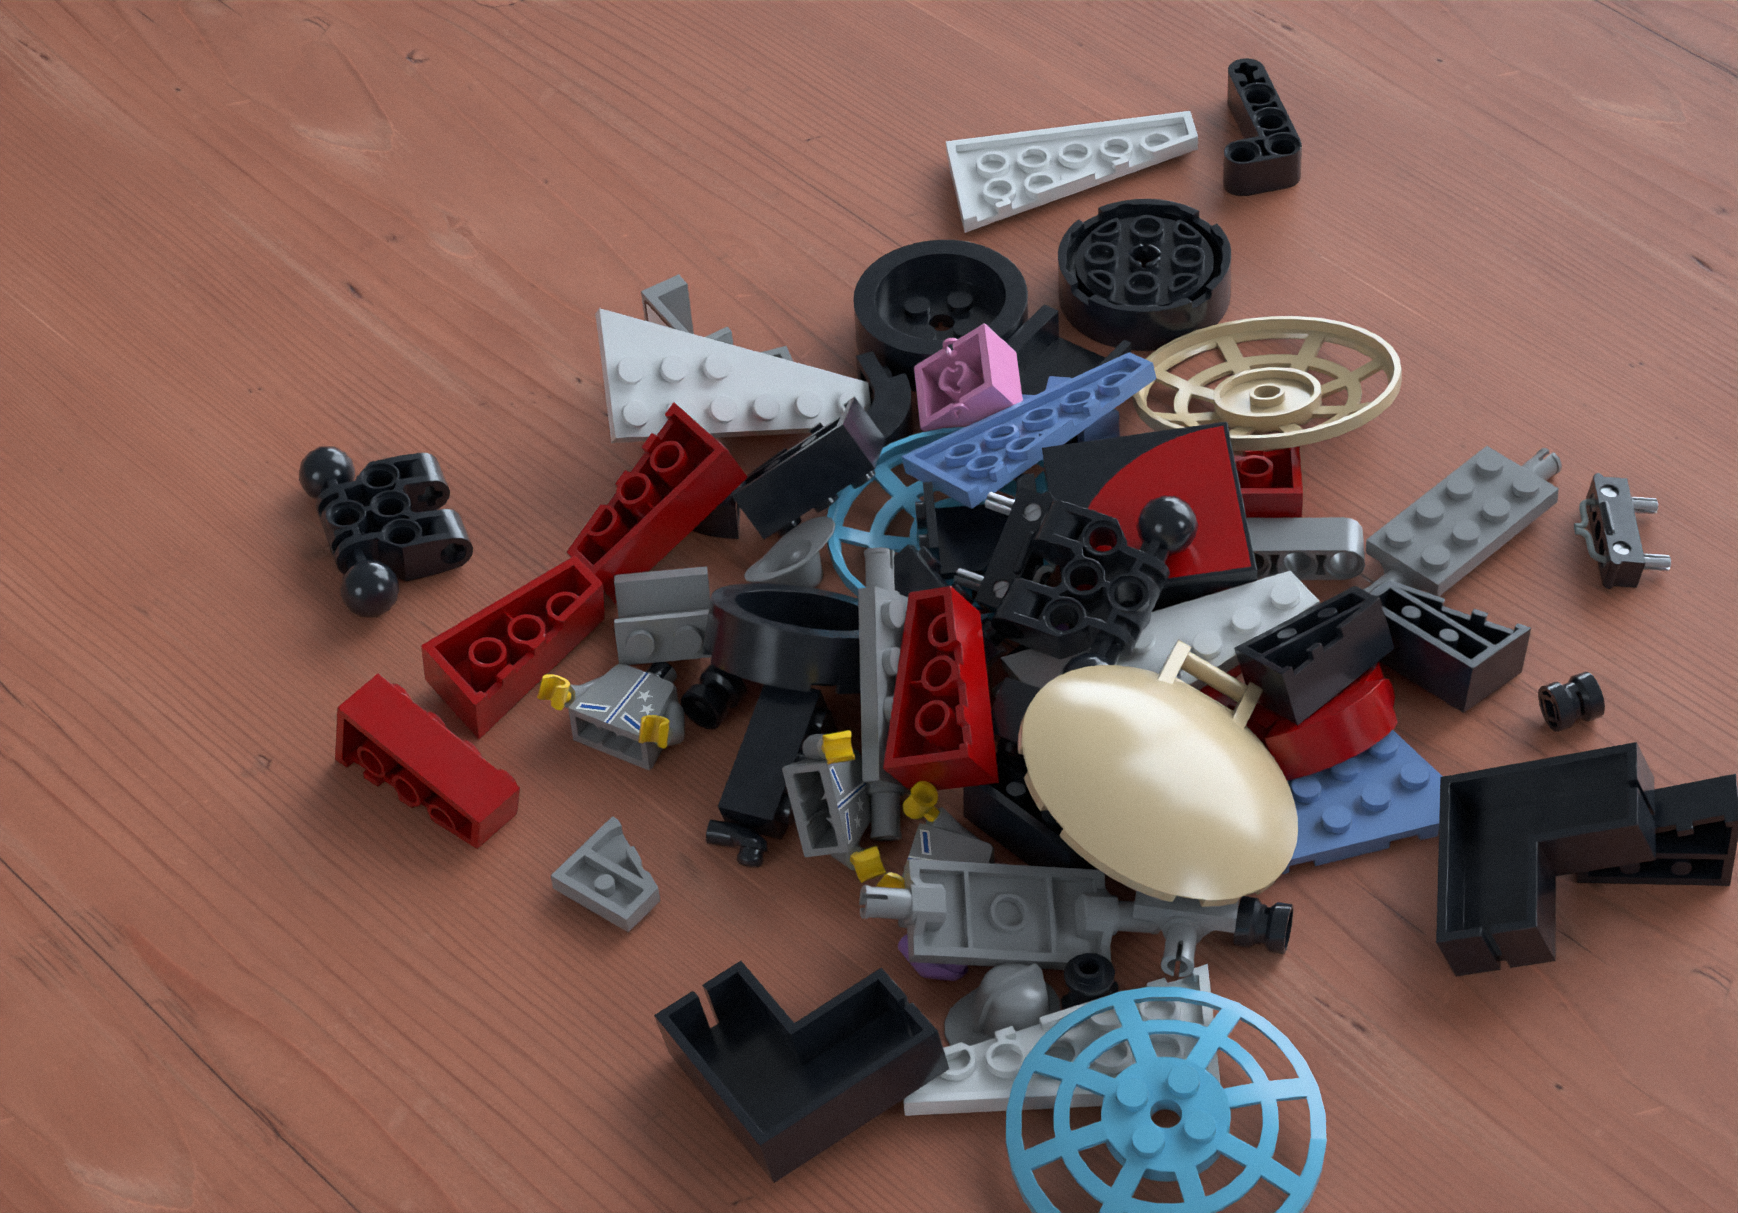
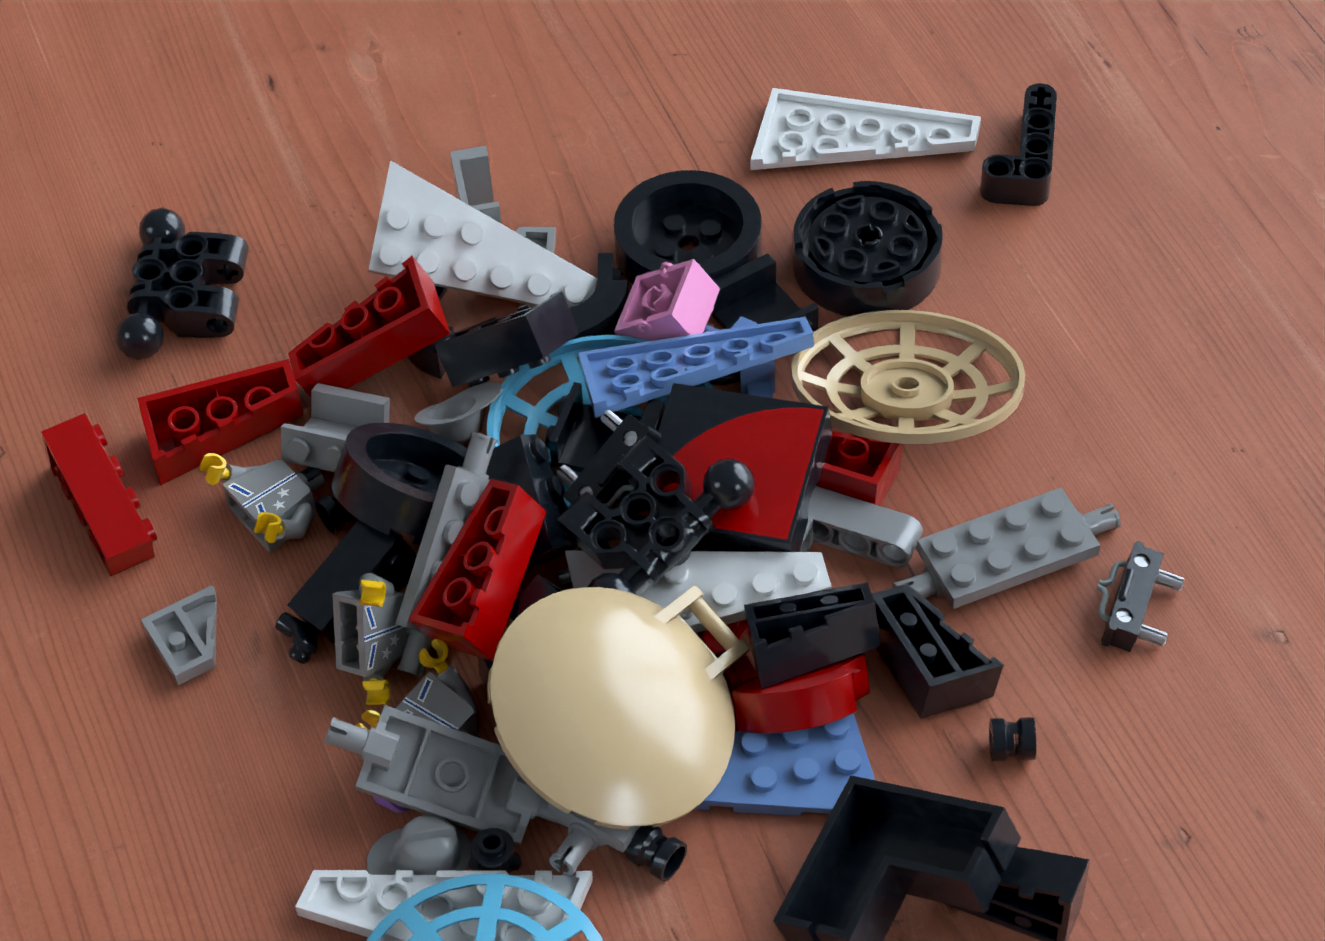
camera: 20 degrees right, 5 degrees up
(806, 1082) = (221, 862): black piece -> none

